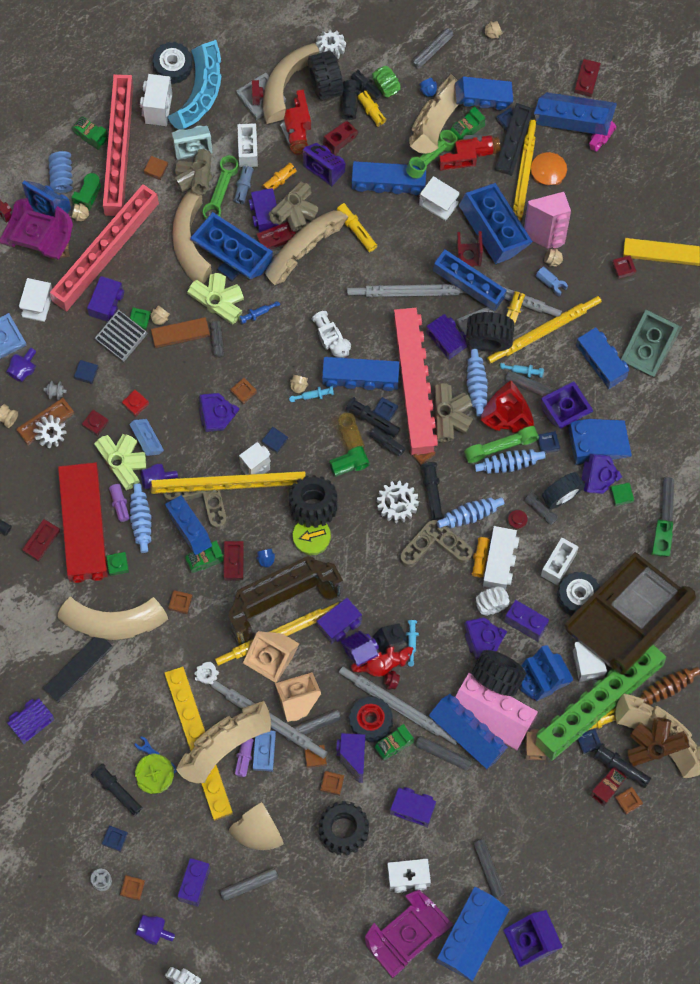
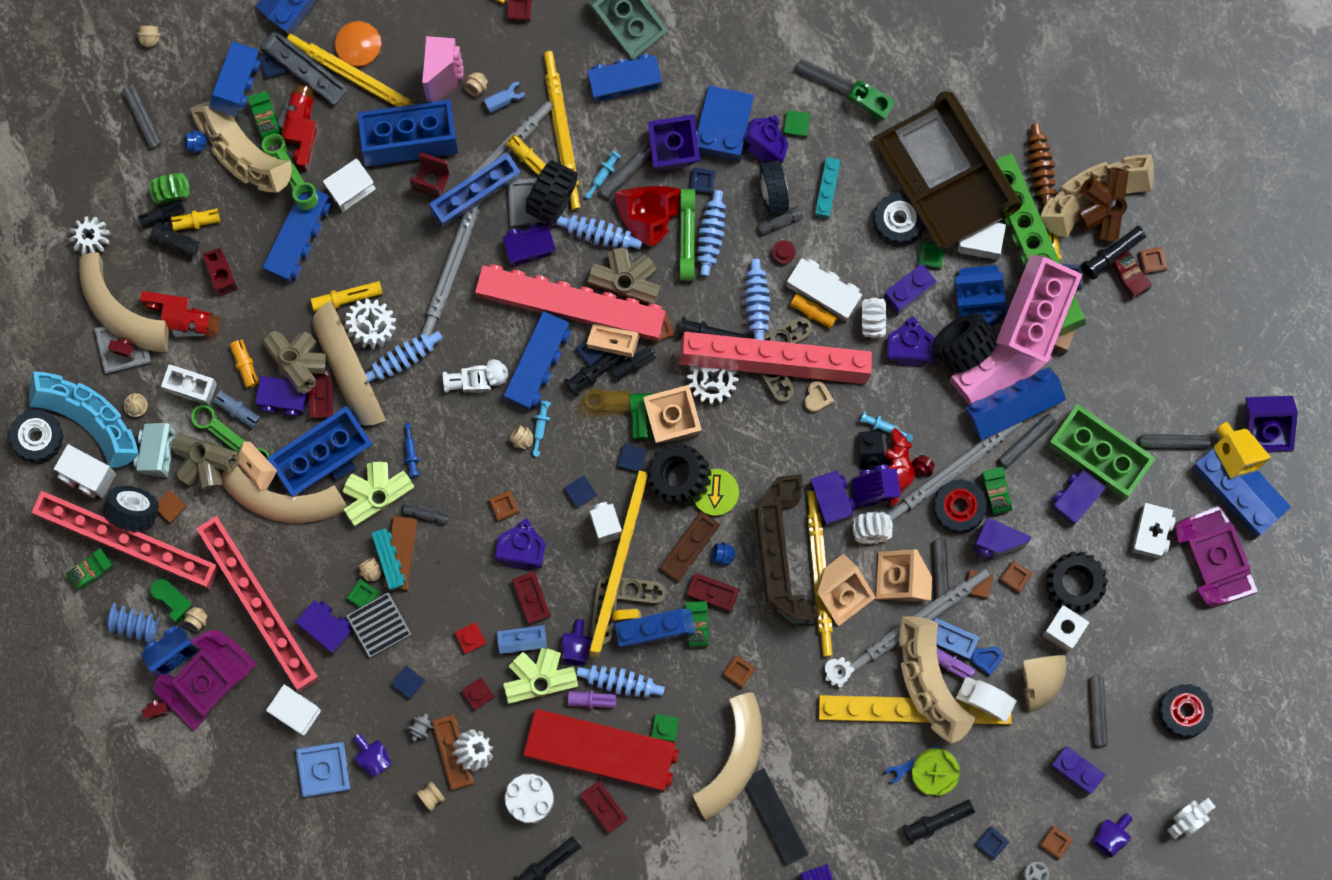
camera: 70 degrees left, 10 degrees up
(28, 484) = (529, 798): none -> white brick
(141, 138) = (130, 508): none -> black wheel
(170, 323) = (388, 561): none -> teal piece
(180, 433) = (531, 597): none -> dark red plate
(192, 503) = (624, 615): none -> yellow tile
(204, 207) = (255, 465): none -> light nougat piece
(220, 119) = (135, 405): none -> tan plate
(223, 789) = (986, 698): none -> white brick
(258, 784) = (987, 659): none -> blue tile
(263, 532) = (689, 546): none -> reddish brown tile
(276, 939) = (1200, 709): none -> black wheel
(310, 836) = (1058, 637): none -> white piece
(315, 466) = (632, 458): none -> dark blue tile
(323, 163) = (248, 302): dark purple slope -> none
(325, 75) = (135, 257): black tyre -> none
(327, 280) = (403, 356): none -> light blue piece
(327, 657) = (872, 527): none -> white gear
(342, 240) = (373, 316): none -> white gear
(356, 480) = (672, 415): none -> light nougat slope
(397, 410) = (602, 336): none -> light nougat piece
(415, 585) = (818, 397): none -> tan tile
(430, 537) = (775, 358): none -> coral brick
(455, 811) = (1101, 452): none -> bright green brick
(498, 918) = (1239, 451): none -> yellow torso
(546, 714) = (1038, 308): none -> bright pink slope
(558, 630) = (931, 255): none -> green tile
(559, 561) = (855, 225): white brick -> none
(582, 533) = (827, 188): none -> teal piece

